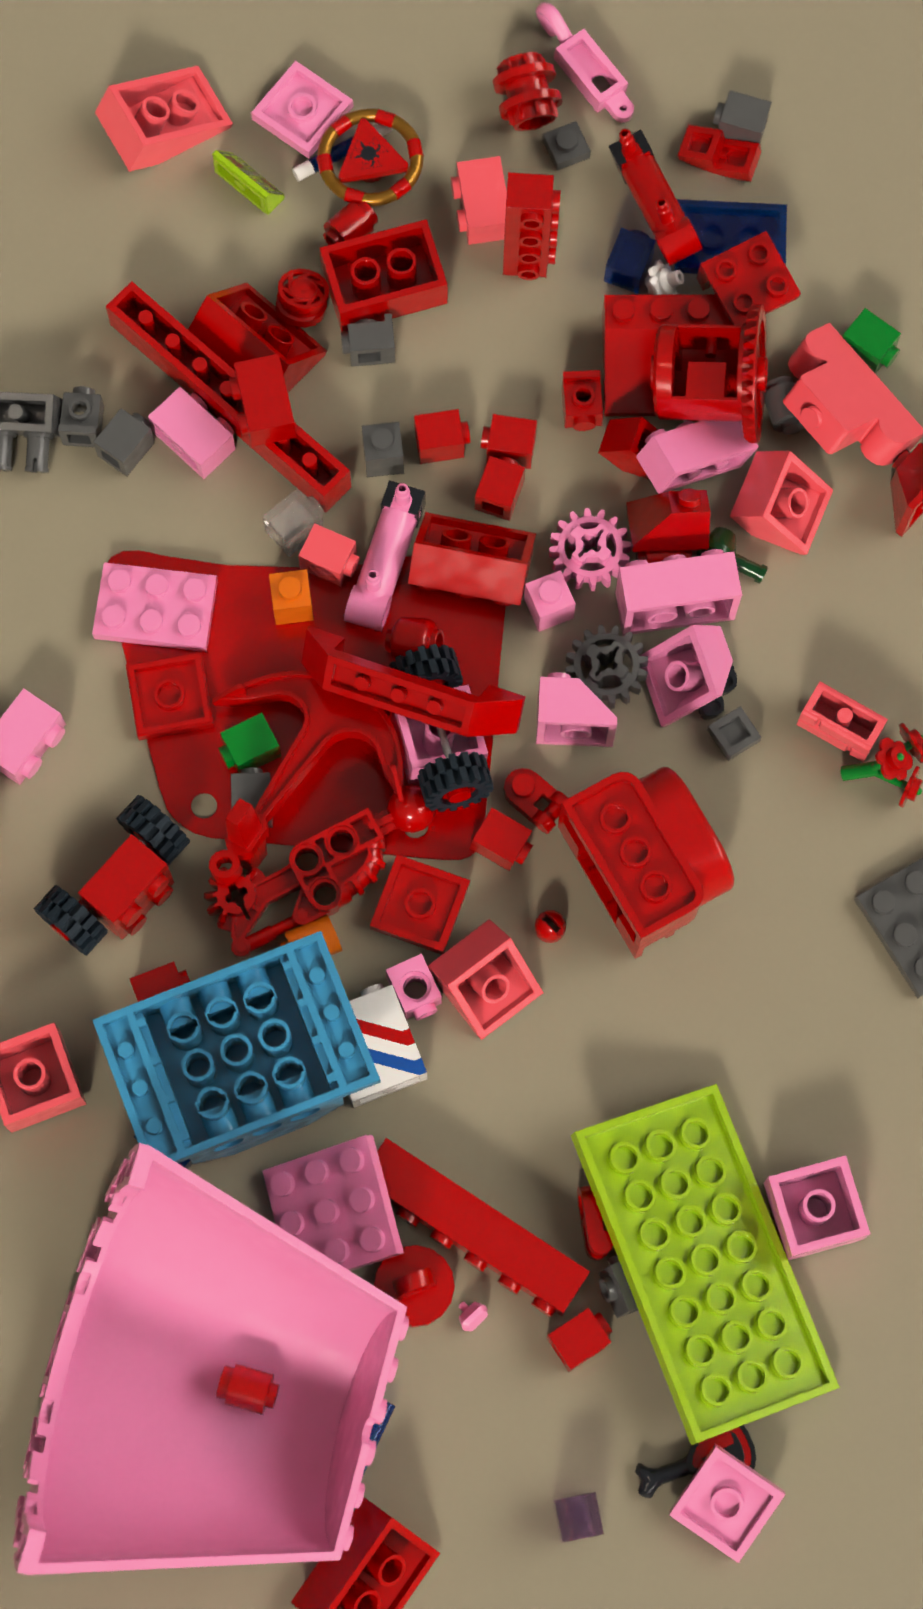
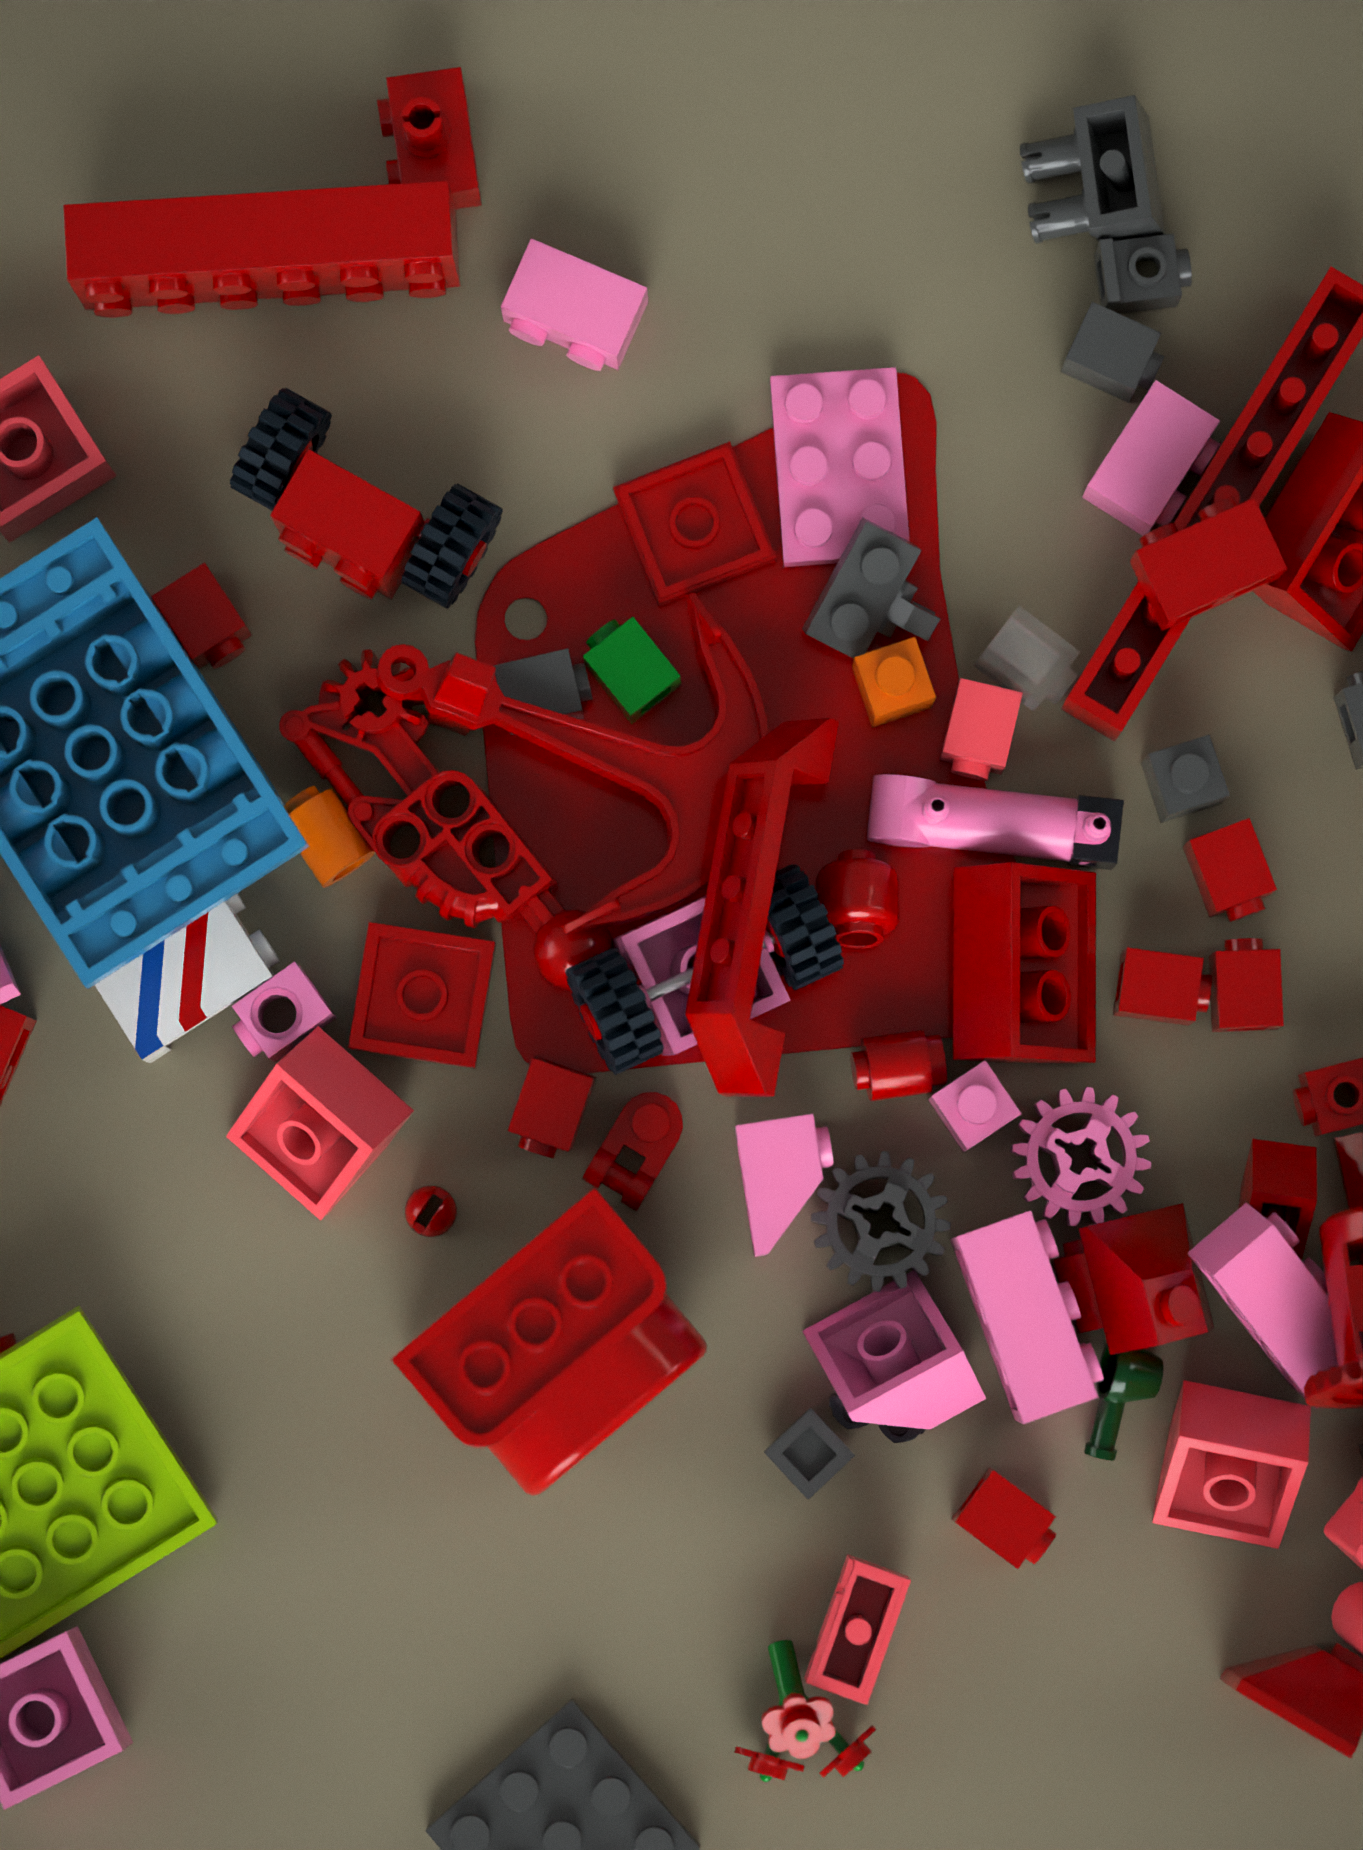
camera: 85 degrees right, 10 degrees up
(235, 601) = (869, 593): none -> dark grey hinge
(516, 639) = (899, 1065): none -> red brick
(791, 630) = (1006, 1520): none -> red brick

